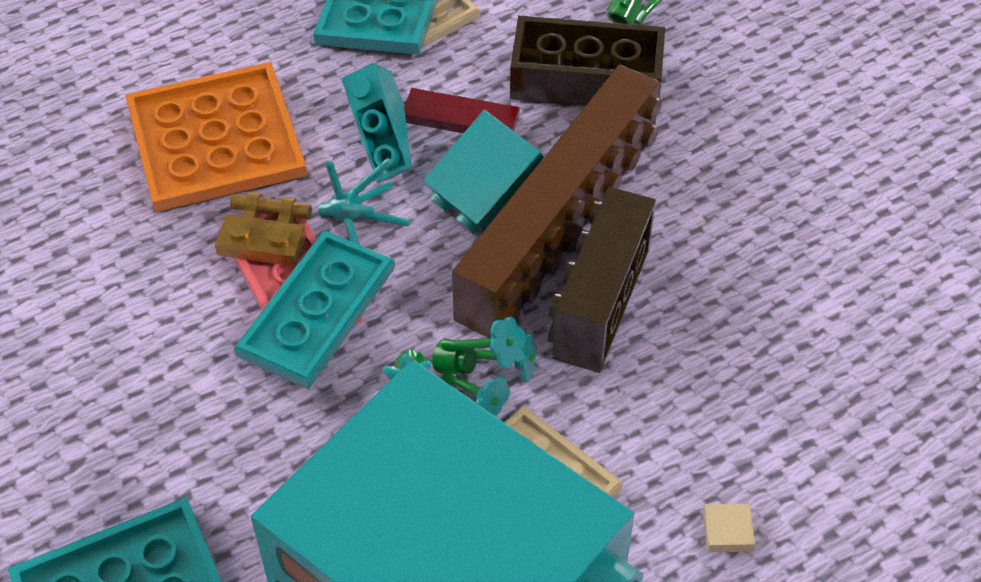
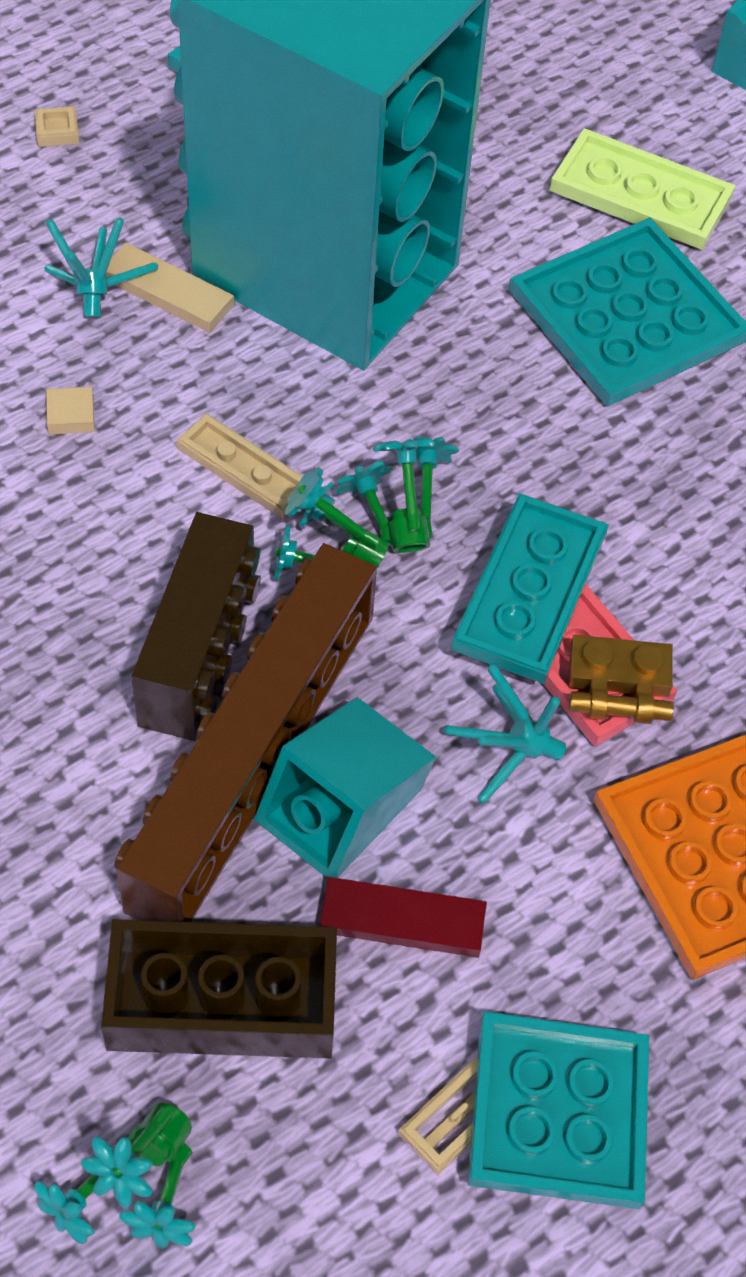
camera: 170 degrees right, 5 degrees up
(379, 118) = (516, 878): teal slope -> none

